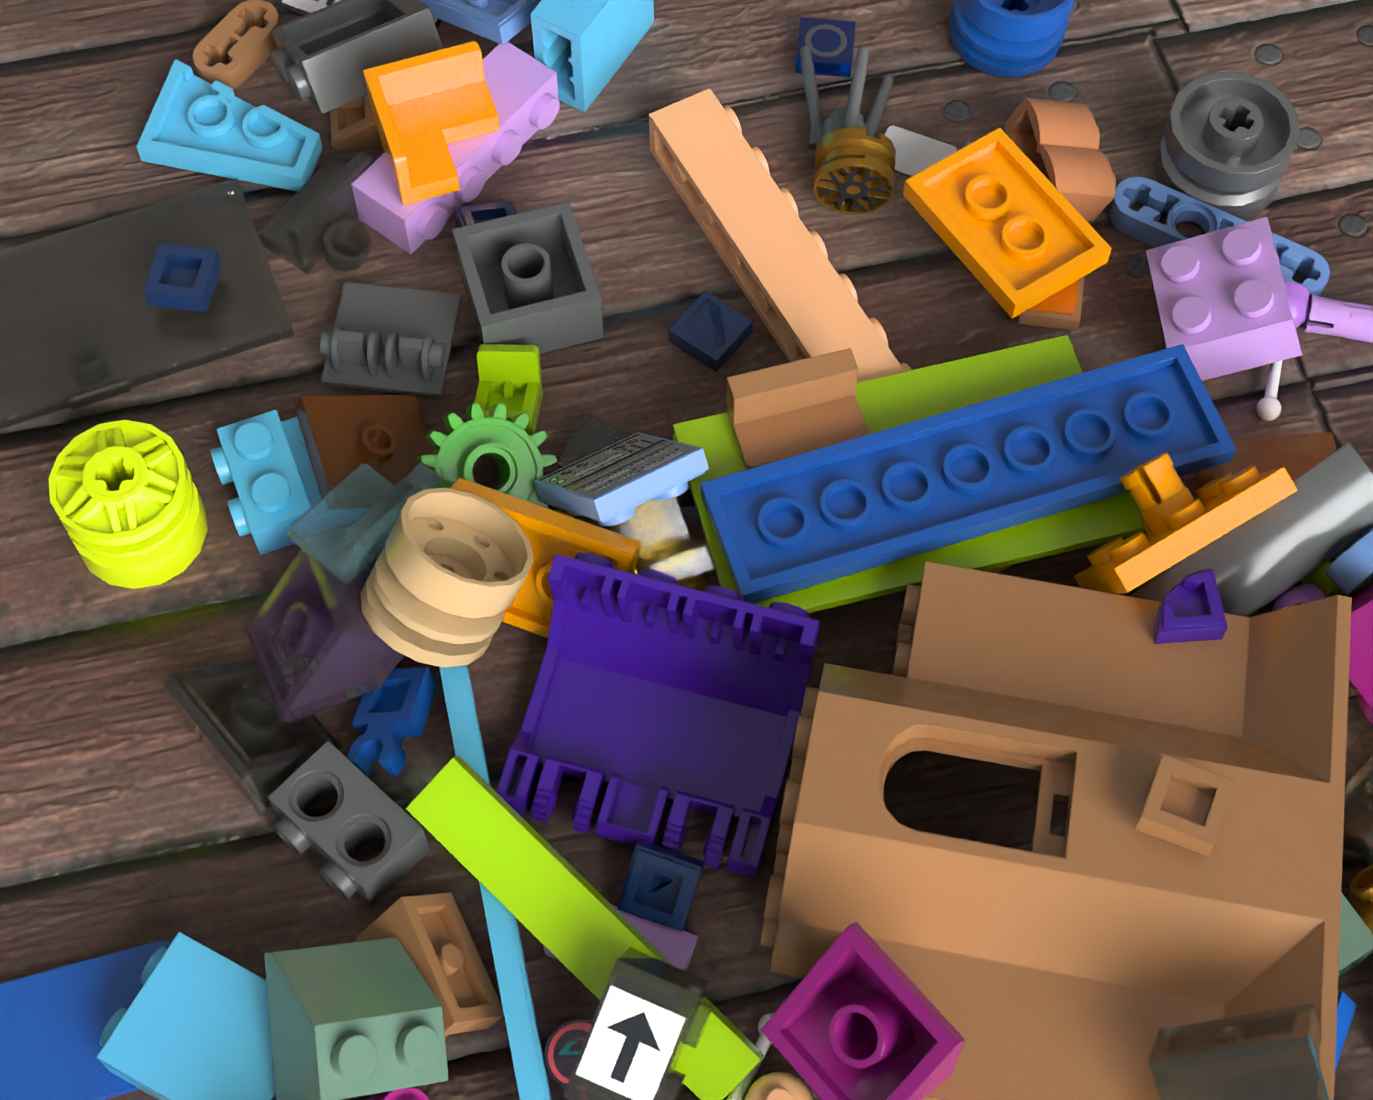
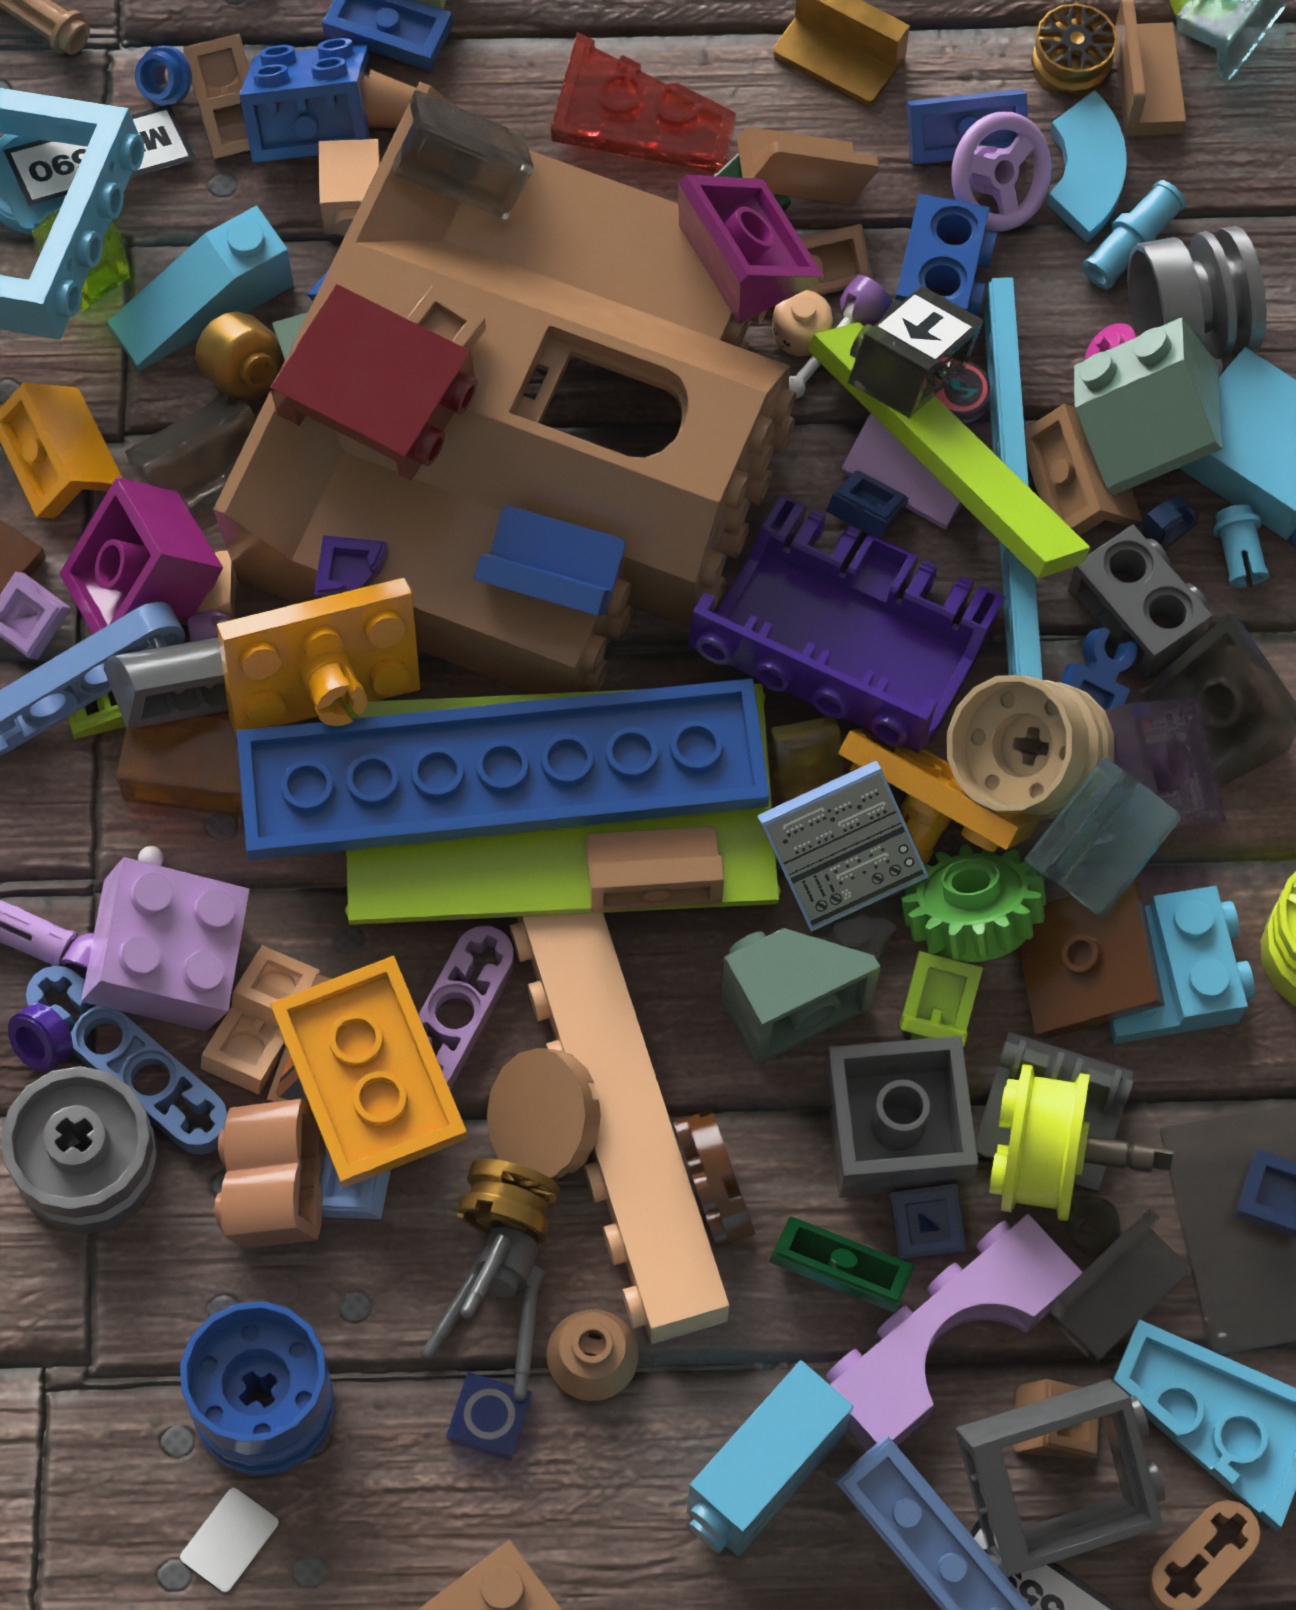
camera: 170 degrees left, 5 degrees up
(241, 921) = (1241, 543): none -> medium azure pin
(332, 921) = (1169, 521): none -> dark blue tile
(391, 258) = (1053, 1143): none -> neon yellow wheel
(424, 107) = (1009, 1313): light orange panel -> none
(561, 166) = (842, 1264): none -> dark green slope
(642, 357) = (793, 989): none -> sand green slope
(680, 204) = (714, 1178): none -> reddish brown plate
(710, 331) = (708, 1057): dark blue tile -> none
(756, 94) = (611, 1357): none -> medium nougat cone
(843, 235) = (543, 1112): none -> medium nougat tile
(916, 151) = (423, 1253): white sticker -> none
(939, 303) = (491, 980): none -> lavender beam
(980, 622) = (553, 561): none -> blue panel
(1117, 294) = (248, 1038): none -> light nougat slope
(1238, 720) = (376, 380): none -> dark red panel
(1301, 230) = (40, 1037): none -> dark purple tile

